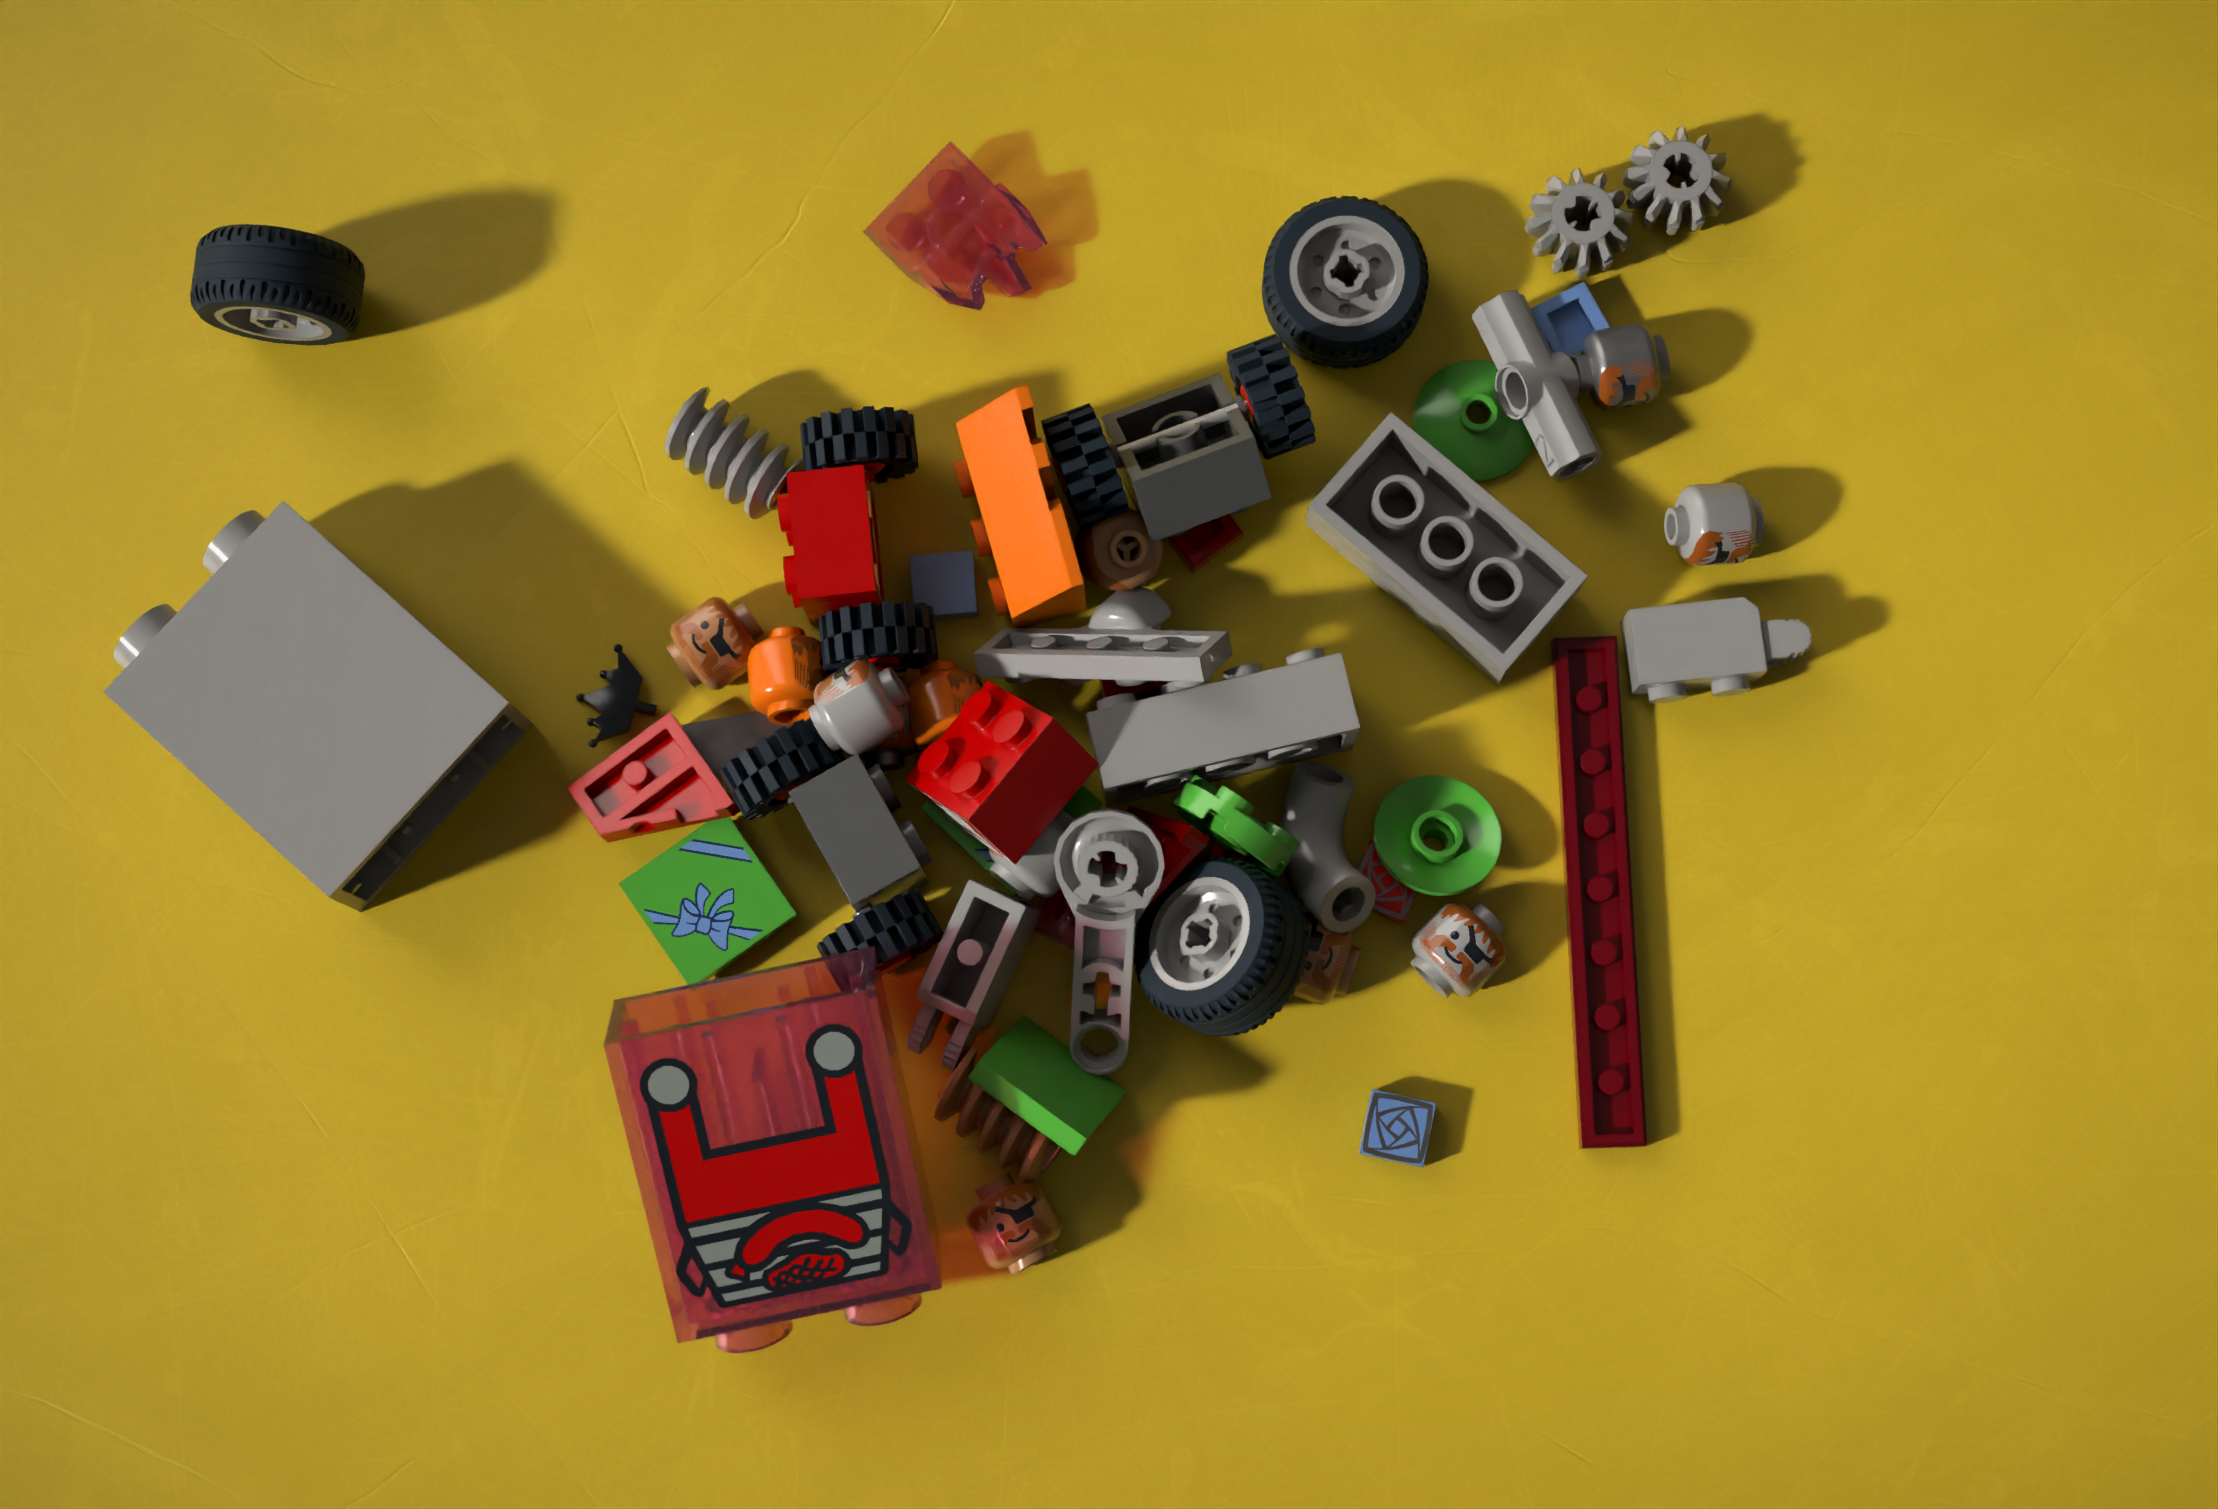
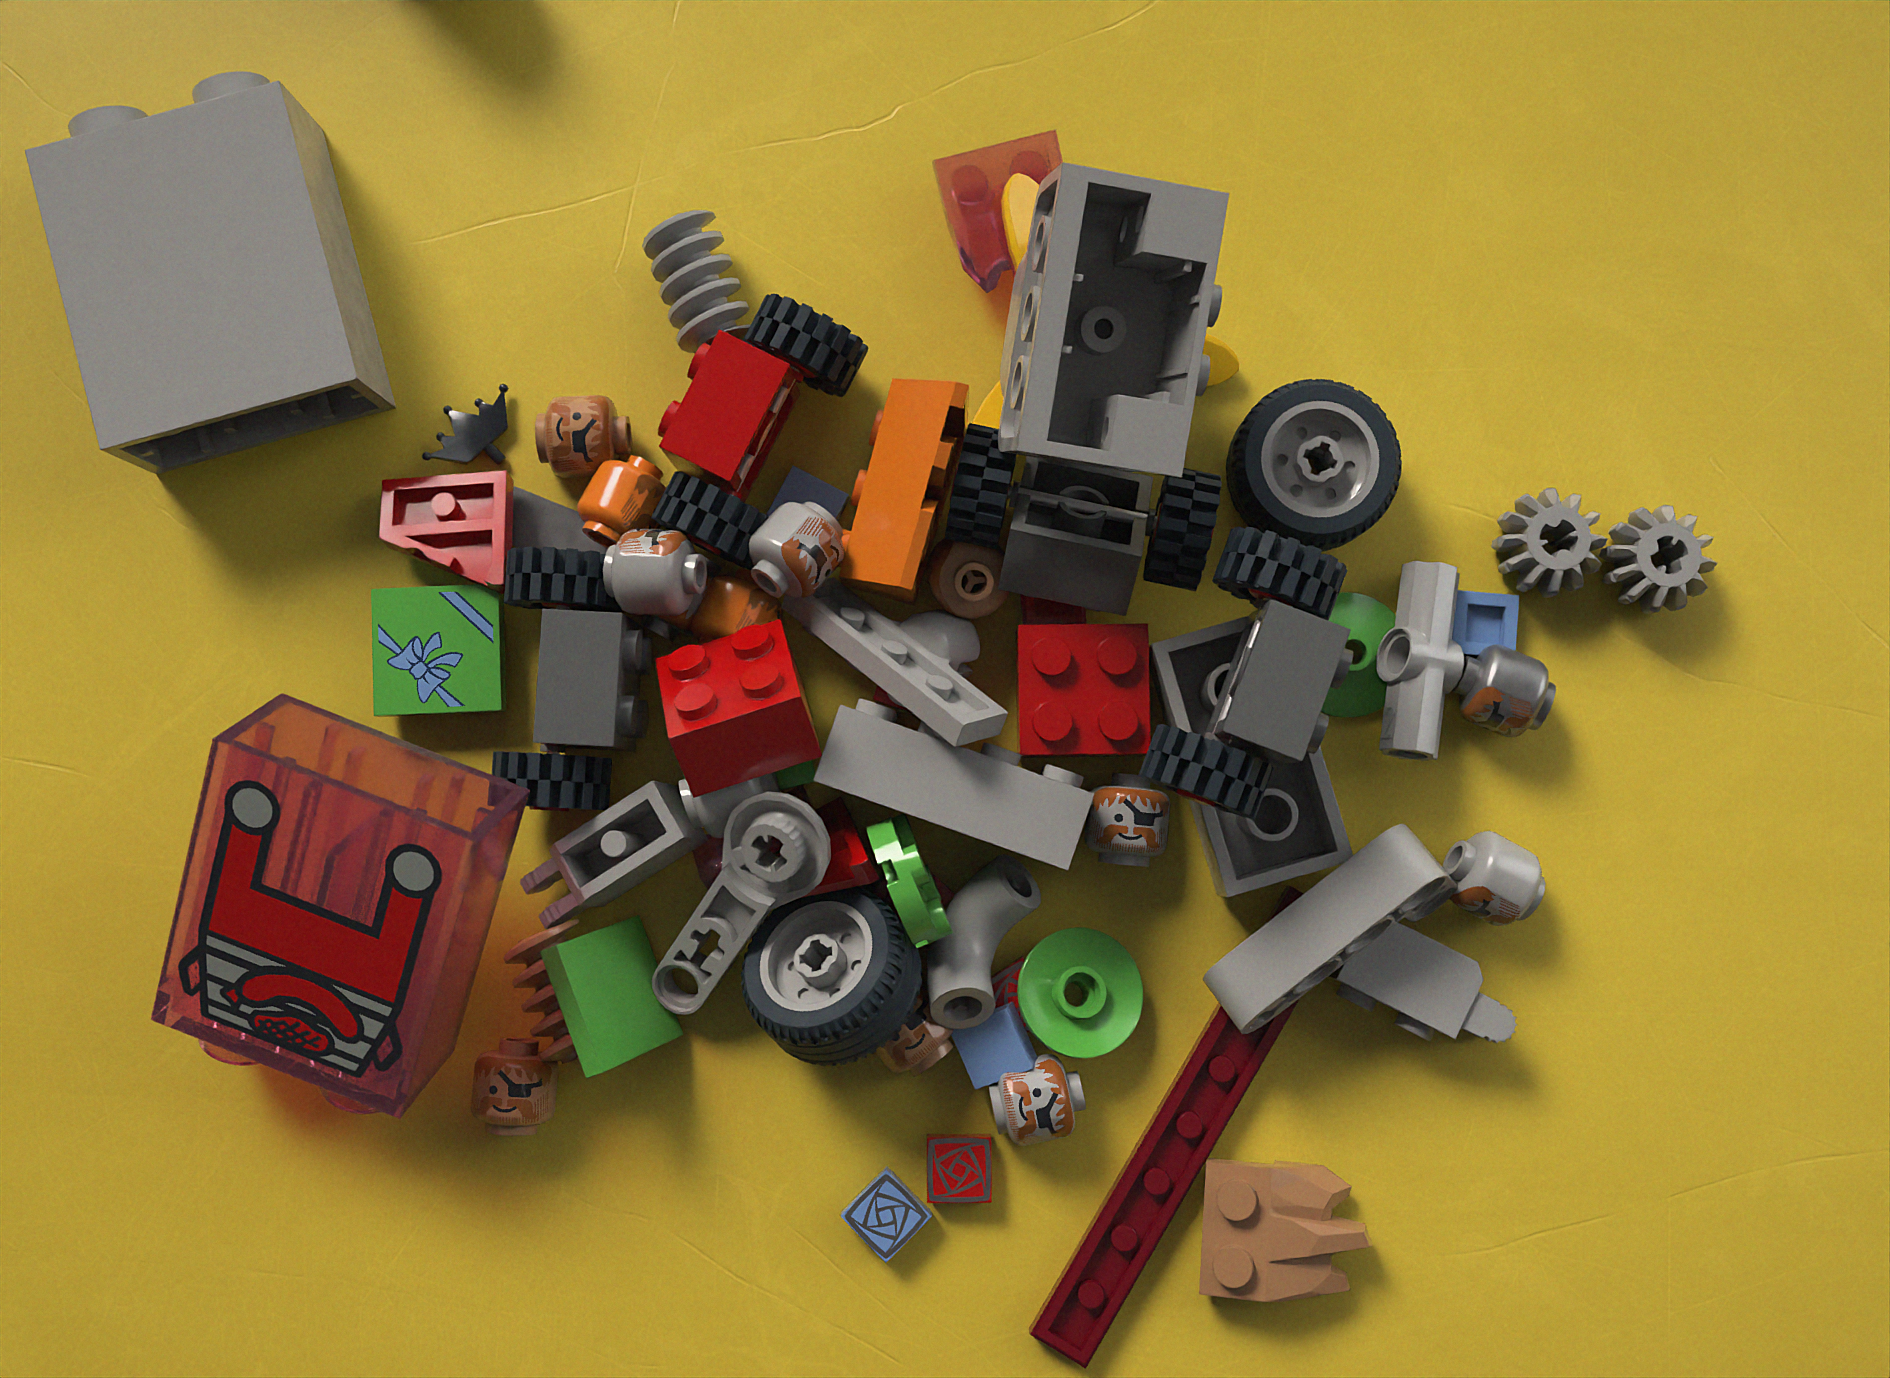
camera: 30 degrees right, 5 degrees up
(963, 616) = (796, 550): none -> light grey head
(1100, 266) = (1108, 319): none -> light grey brick
(1275, 585) = (1082, 690): none -> red brick
(1384, 670) = (1127, 821): none -> head
(1395, 926) = (995, 1047): none -> medium blue tile
(1426, 466) = (1273, 683): none -> brick
(1432, 1050) = (959, 1168): none -> tile
(1604, 644) = (1329, 926): none -> light grey beam
(1727, 929) = (1274, 1231): none -> medium nougat plate

